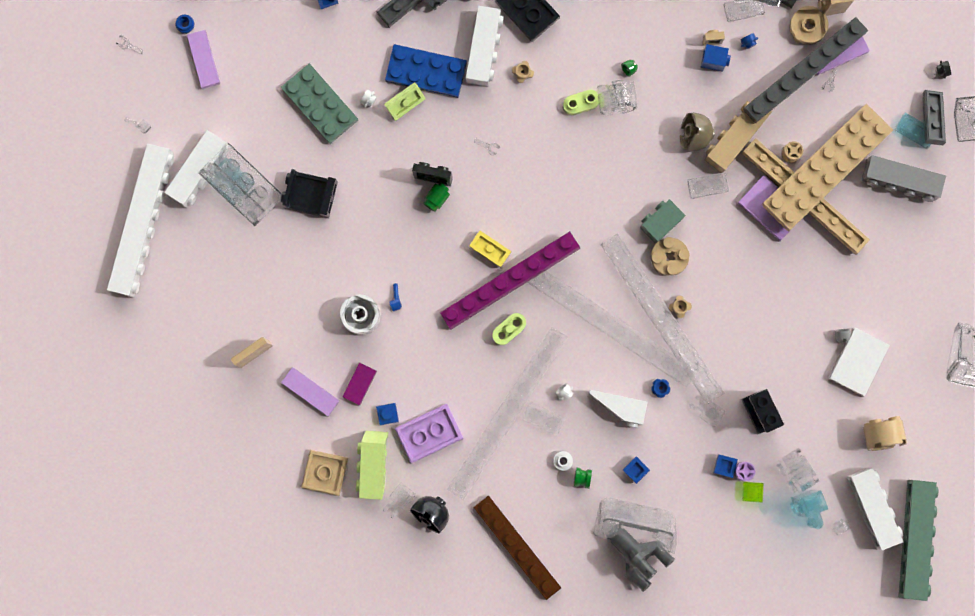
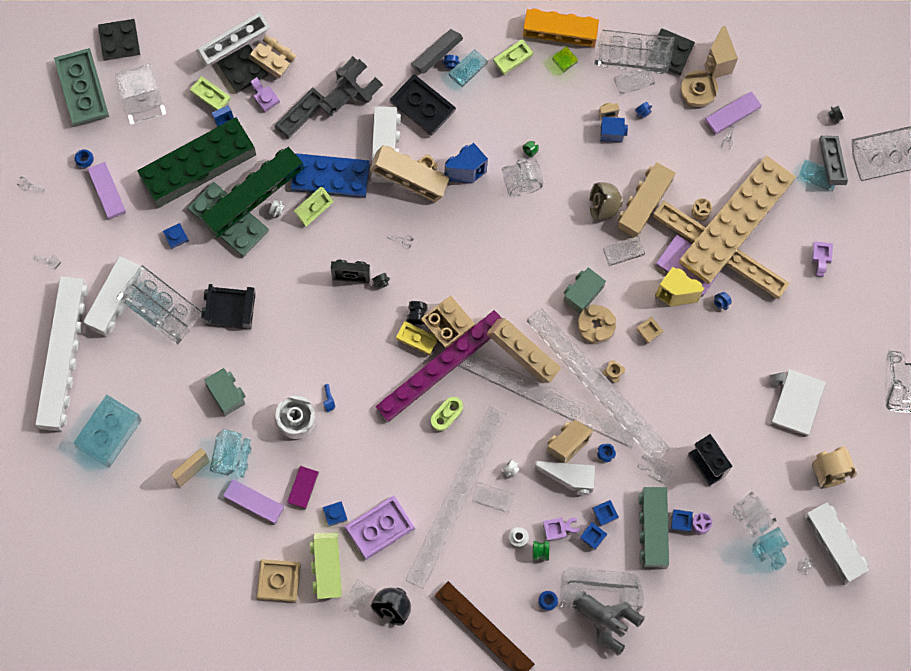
camera: 15 degrees left, 10 degrees down
(176, 304) = (107, 431): none -> clear light blue brick
(265, 114) = (175, 236): none -> blue plate
(289, 340) = (226, 453): none -> clear light blue brick
(294, 42) = (197, 162): none -> dark green brick
(295, 279) = (224, 391): none -> sand green brick
(345, 80) = (251, 192): none -> dark green brick
(436, 197) = (357, 294): green brick -> none
(462, 186) = (381, 281): none -> pearl dark grey plate
(493, 223) = (416, 312): none -> black wheel
(504, 80) = (409, 173): none -> tan brick
(522, 237) = (448, 321): none -> tan slope
(562, 79) = (467, 165): none -> blue slope
(581, 101) = (488, 186): yellowish green plate -> none
(587, 522) = (548, 594): none -> blue plate
(593, 277) = (523, 350): none -> tan brick
(601, 458) = (557, 529): none -> lavender plate
(625, 373) = (569, 442): none -> tan slope
(651, 448) = (605, 513): none -> blue plate
(697, 469) = (654, 527): none -> sand green brick
(721, 269) = (649, 330): none -> tan plate
(752, 492) = (713, 543): clear neon green tile -> none
(757, 232) = (679, 289): none -> light yellow slope
(799, 249) = (722, 300): none -> blue plate
(805, 70) = (701, 130): dark grey plate -> none
(903, 178) = (813, 221): light grey brick -> none
(907, 214) = (822, 254): none -> lavender plate
(917, 540) = (883, 568): sand green brick -> none

